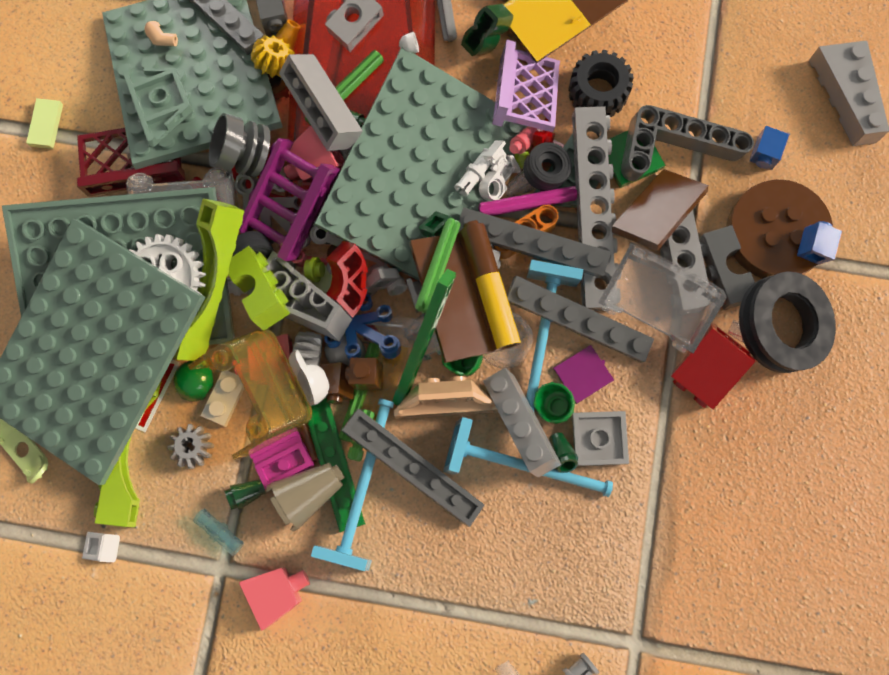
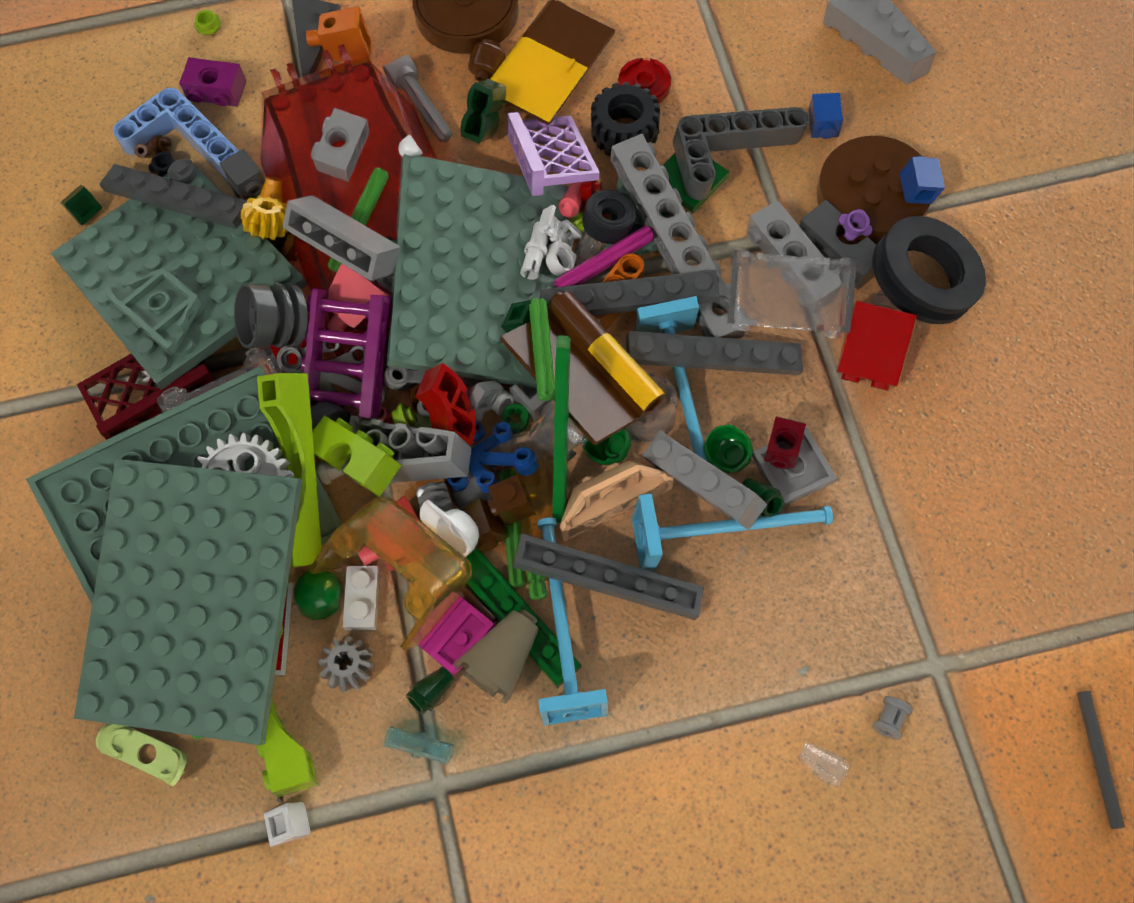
camera: 20 degrees left, 10 degrees down
(44, 123) = (30, 391): yellowish green tile -> none
(159, 38) = (127, 248): light nougat arm -> none
(273, 594) = (513, 784): coral torso -> none
(394, 300) = (516, 409): none -> green bush
(583, 374) = (745, 409): magenta piece -> none
(607, 411) = (789, 432): none -> dark red brick
(637, 50) = (649, 75): none -> red tile
(660, 209) = (745, 212): tile -> none
(752, 254) = (858, 217): none -> medium lavender plate

